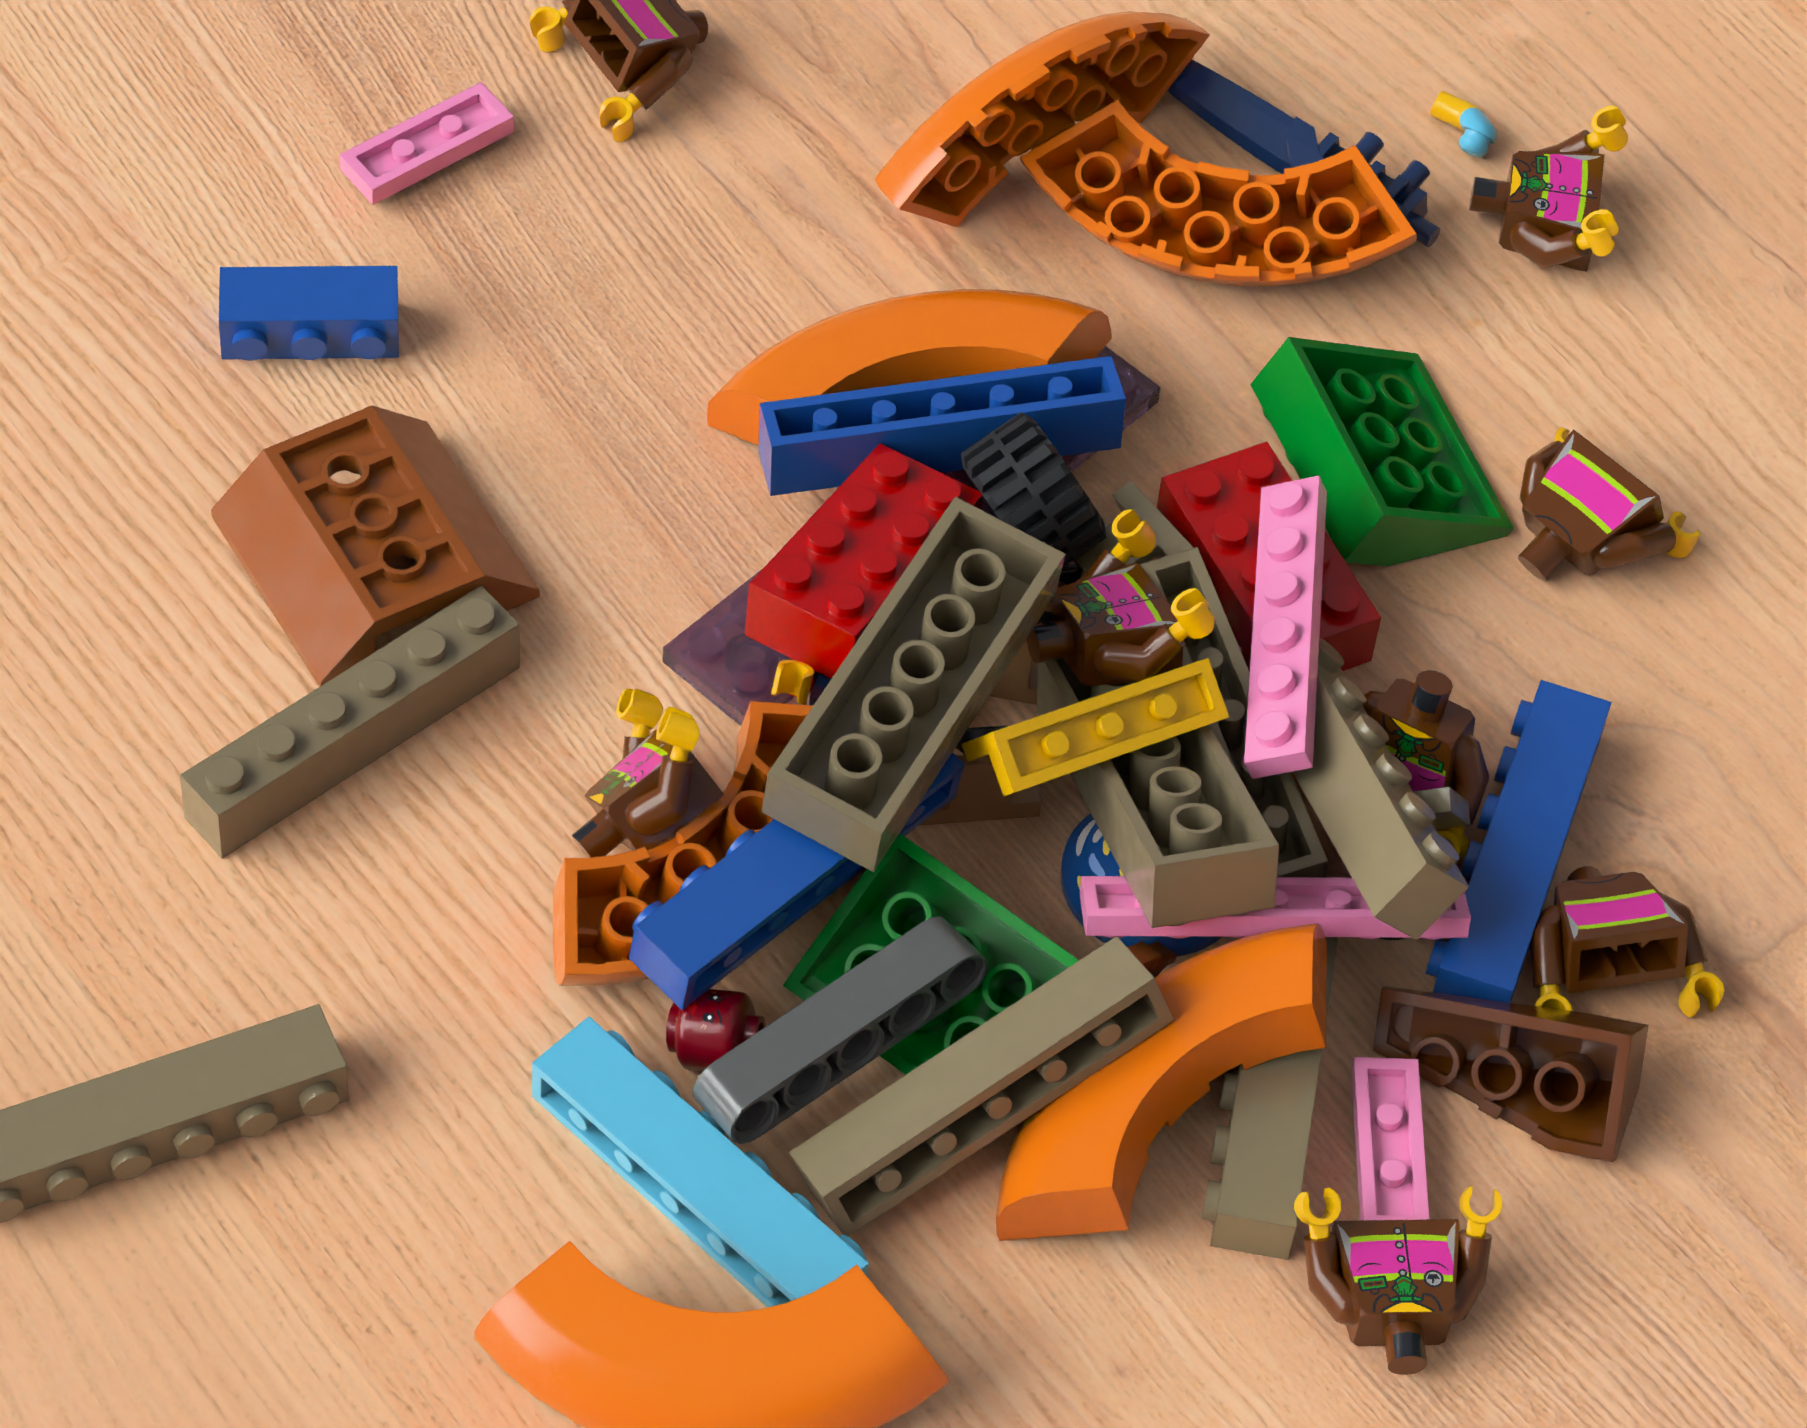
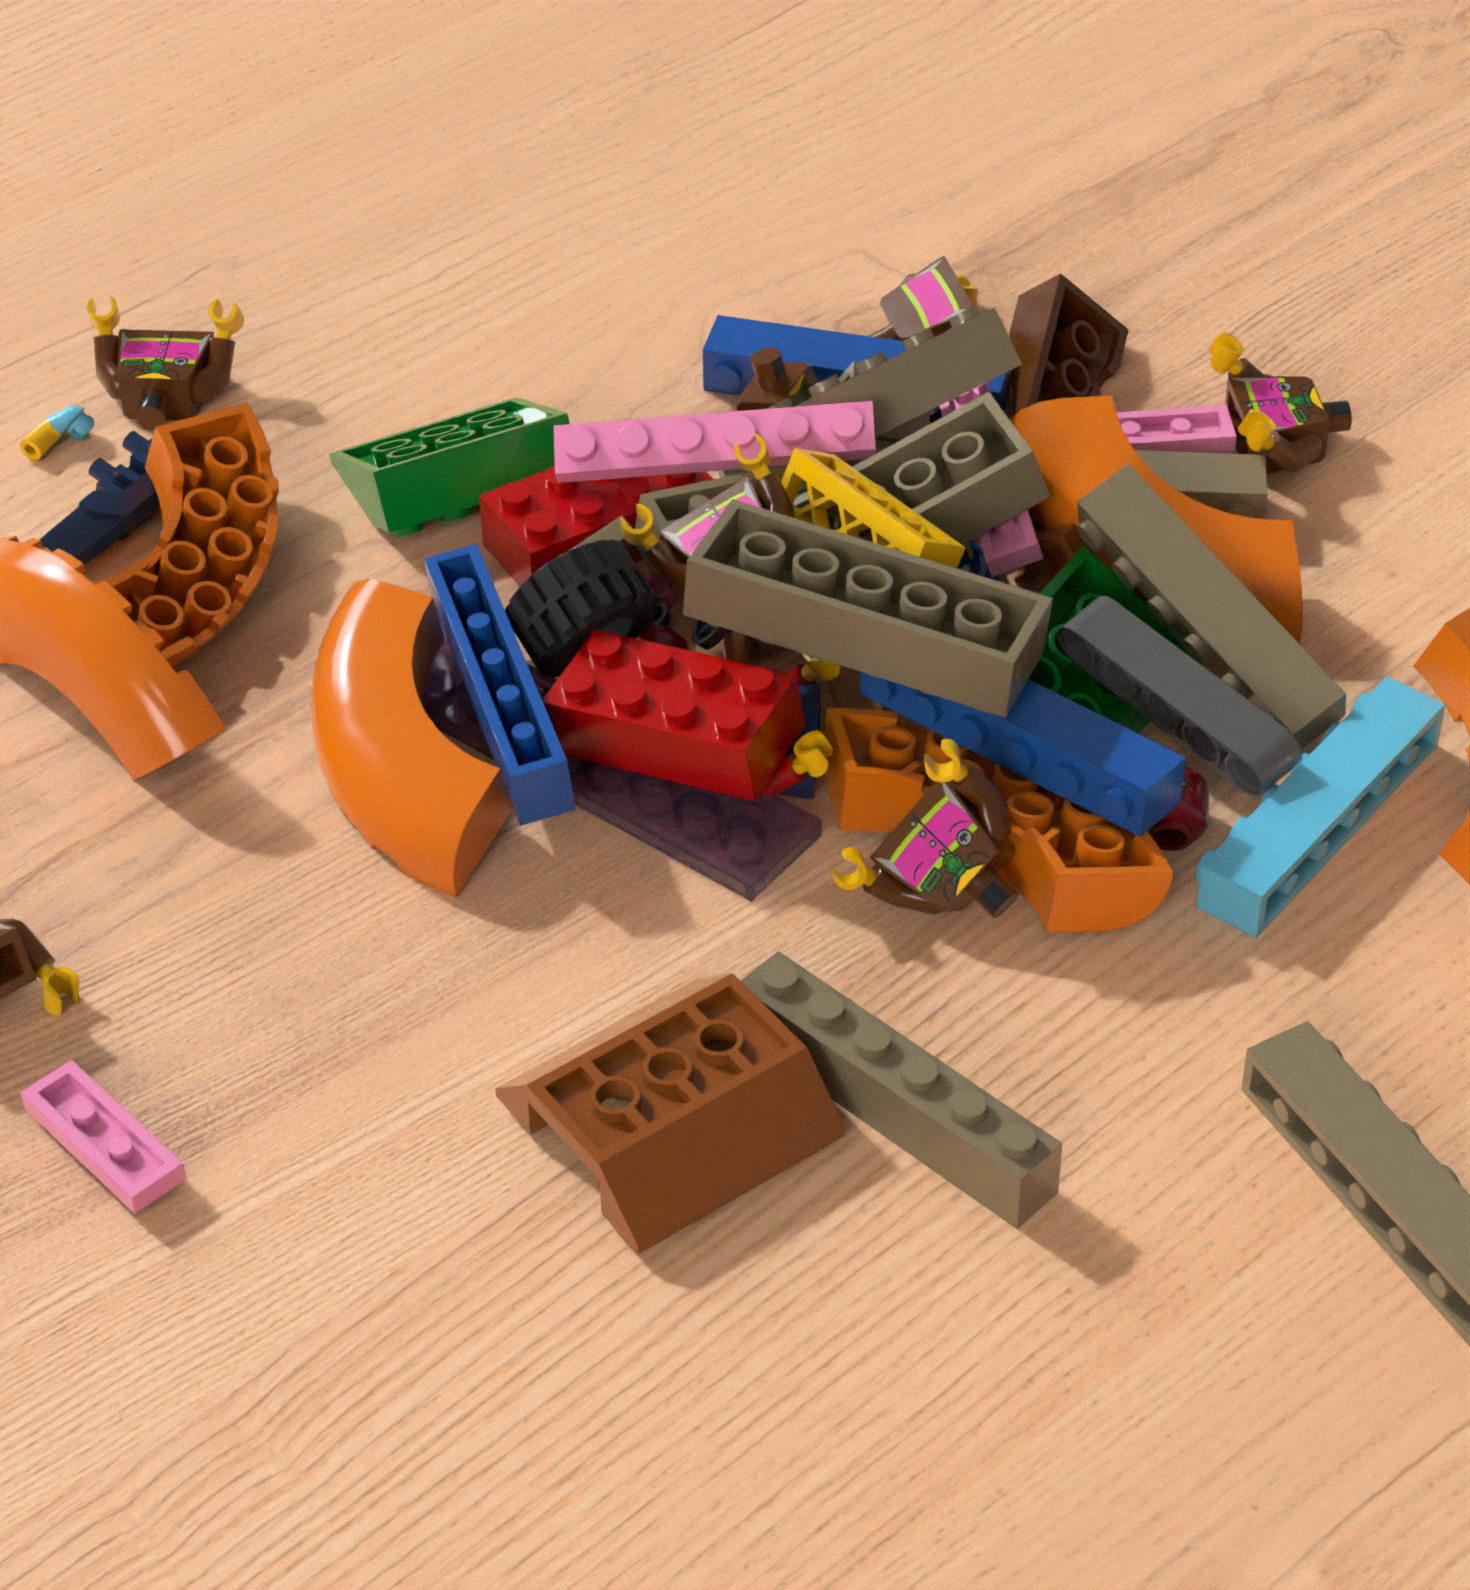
camera: 90 degrees left, 10 degrees down
(309, 312) = (363, 1198): blue brick -> none
(1592, 511) = (503, 342): reddish brown torso -> none

